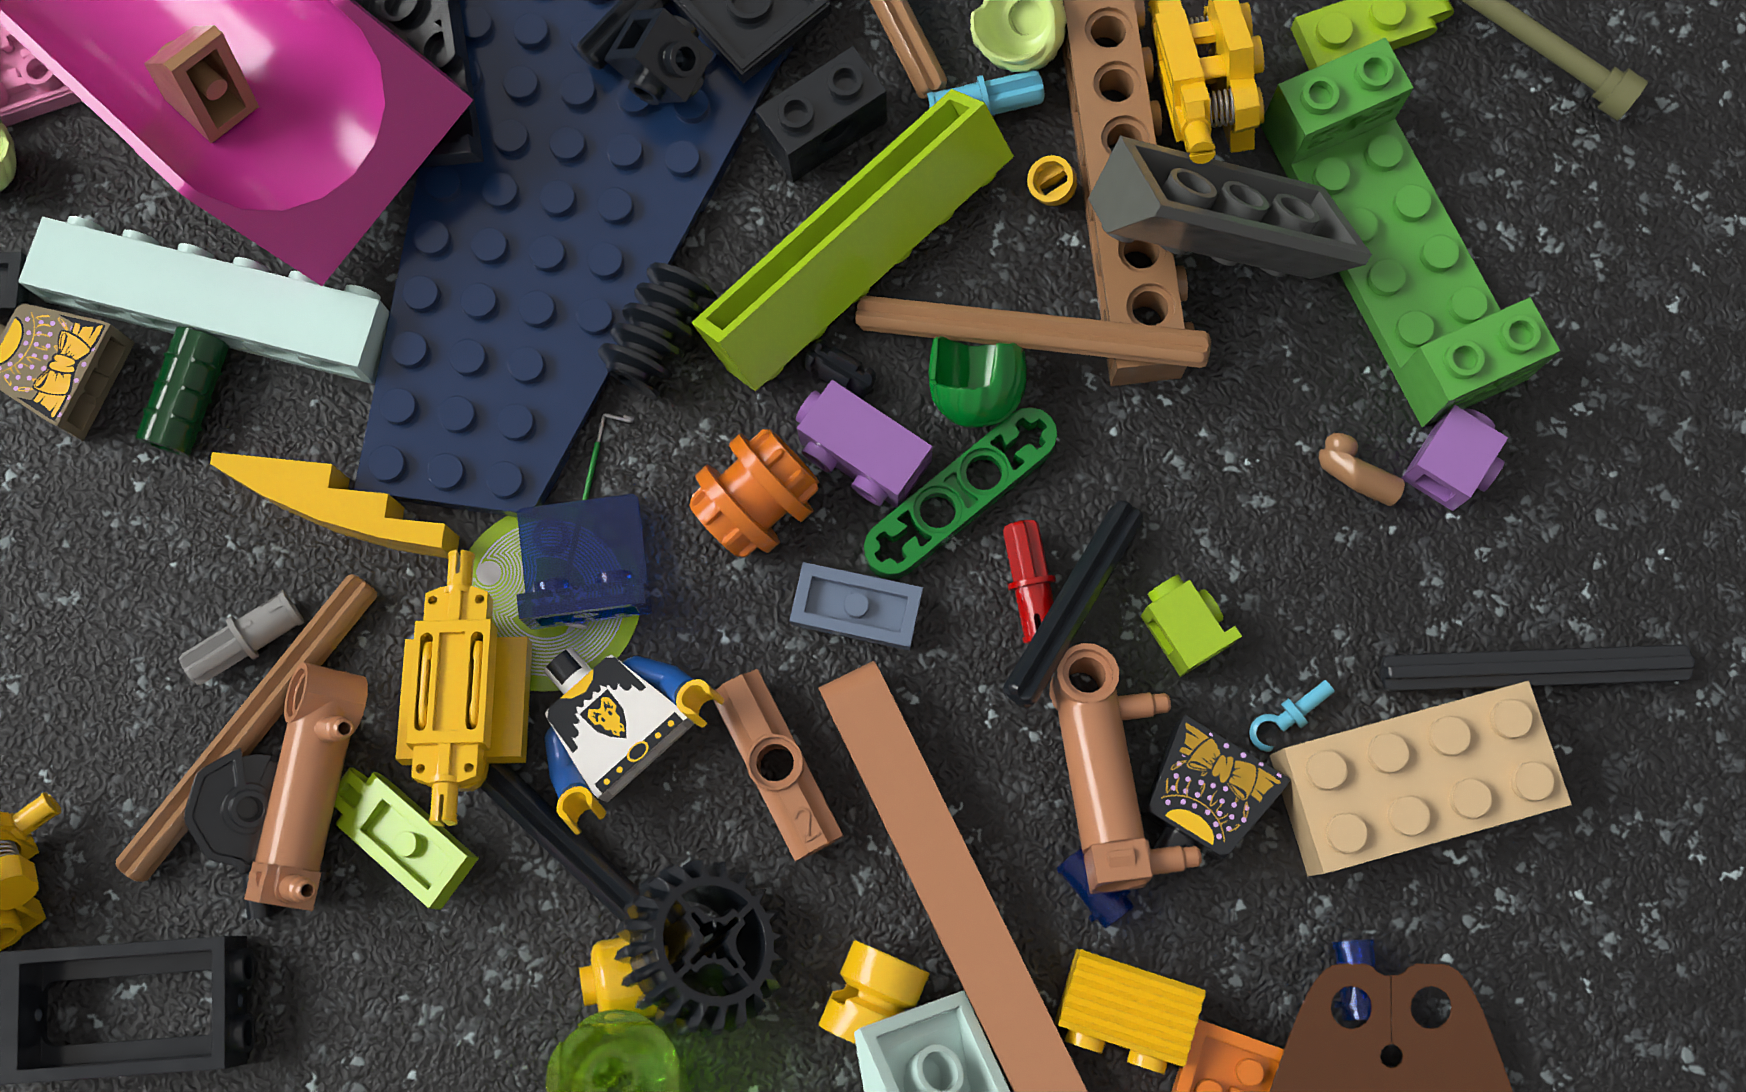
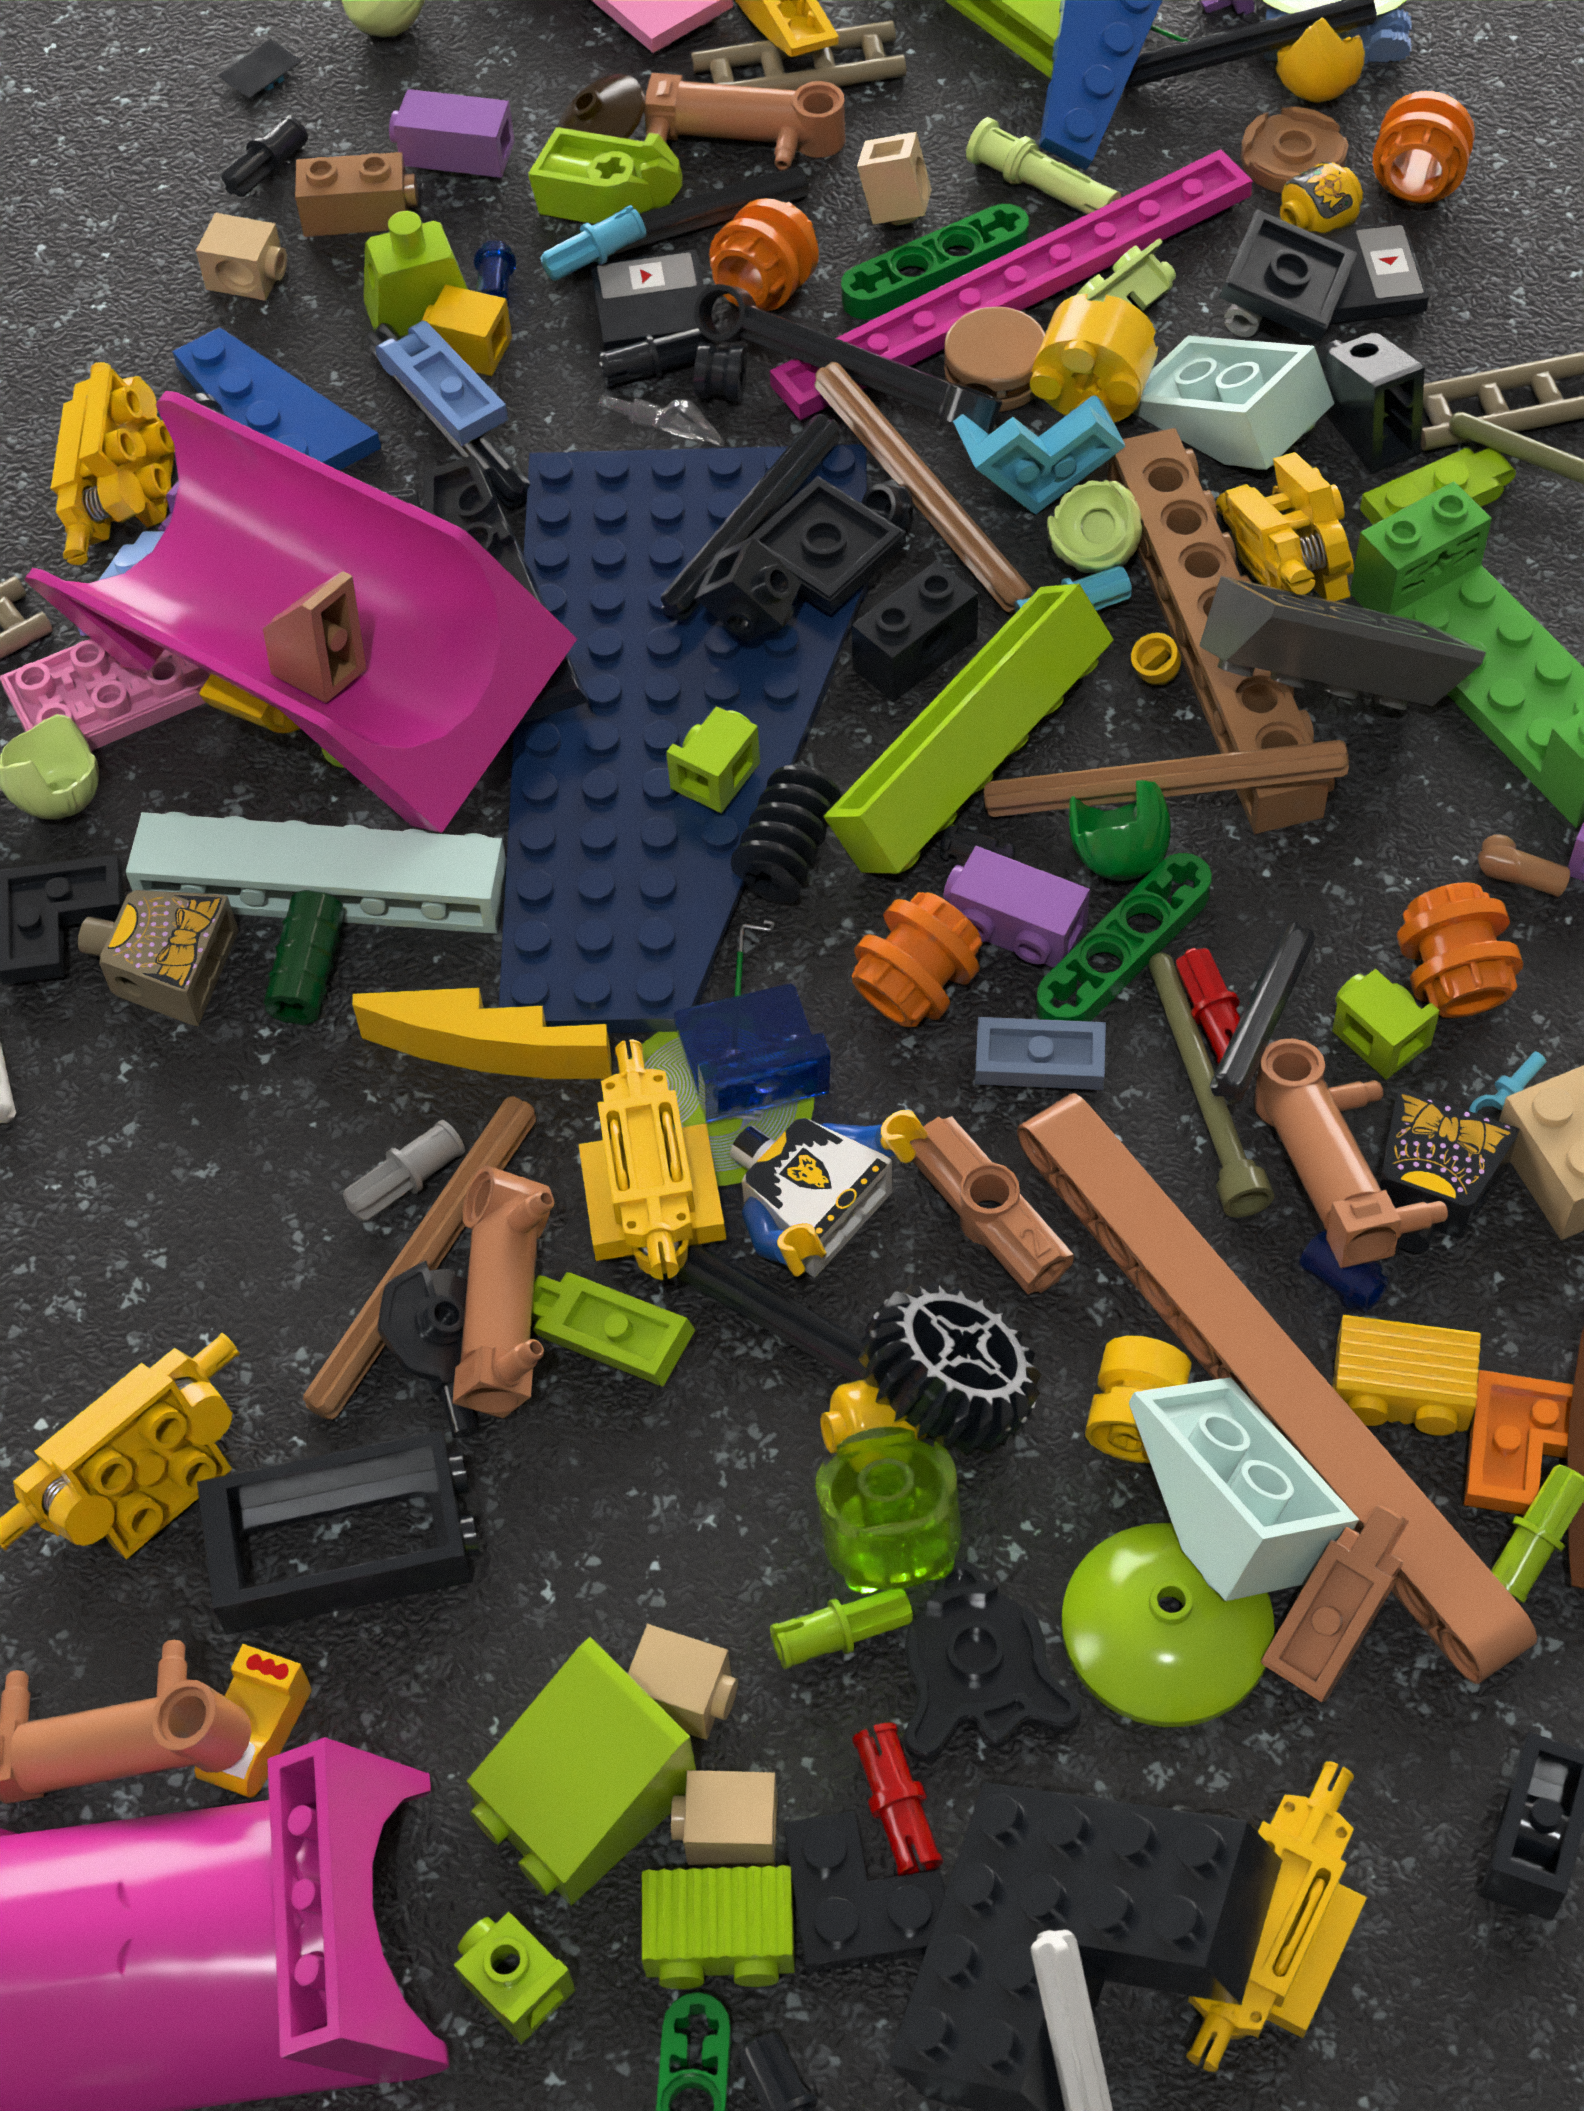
camera: 10 degrees left, 20 degrees down
(598, 241) = (715, 759): none -> lime brick
(1018, 774) = (1241, 1184): none -> olive piece
(1277, 566) = (1462, 960): none -> orange piece

